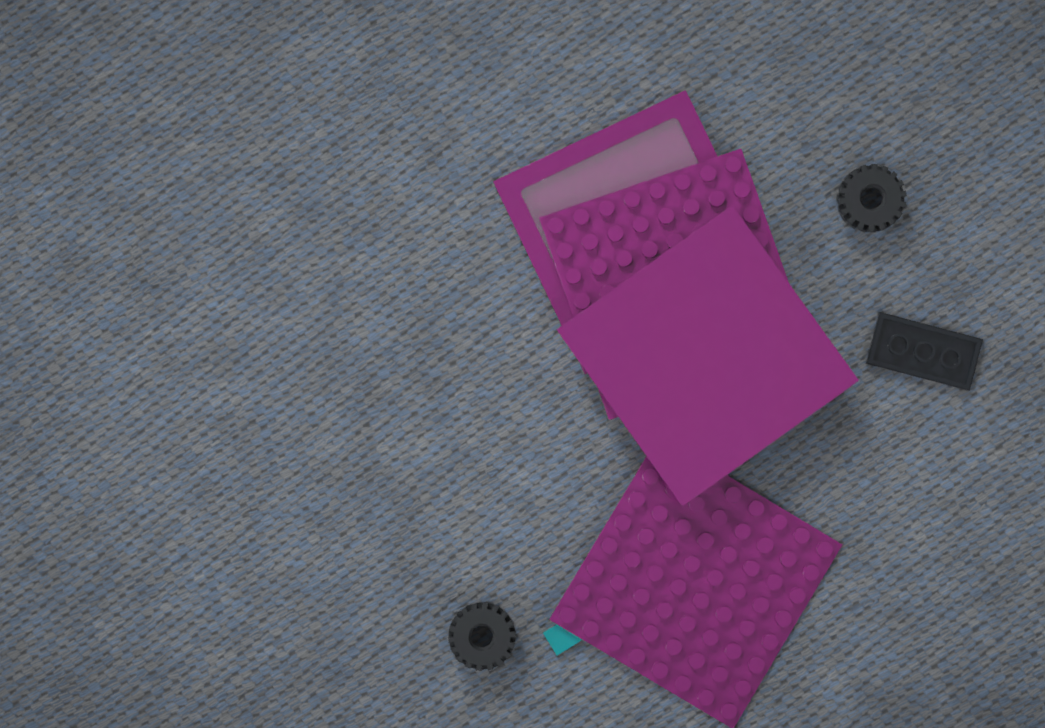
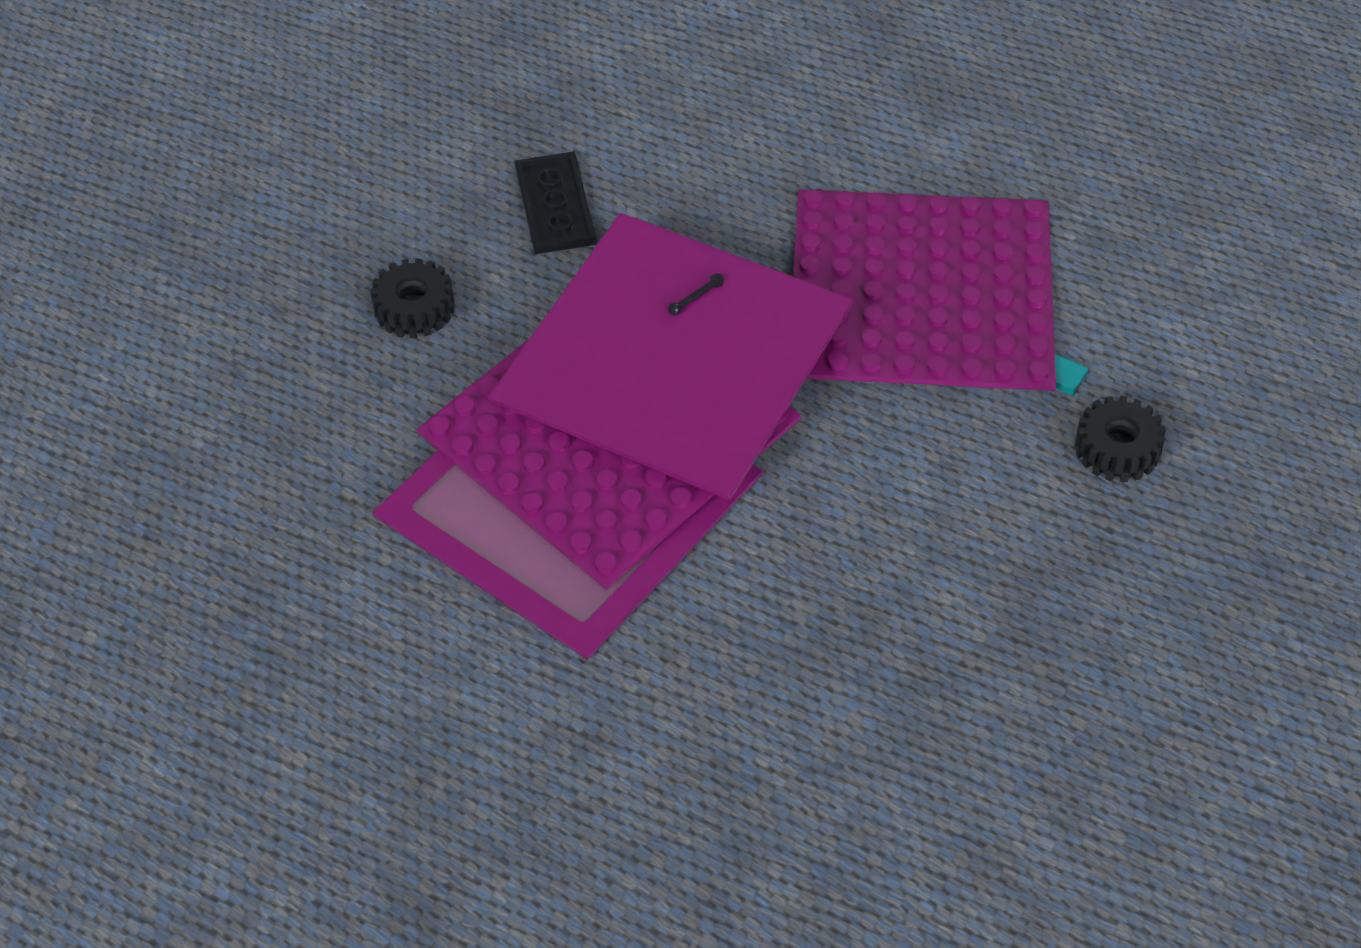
camera: 110 degrees left, 35 degrees down
(750, 416) = (717, 281): none -> black hinge

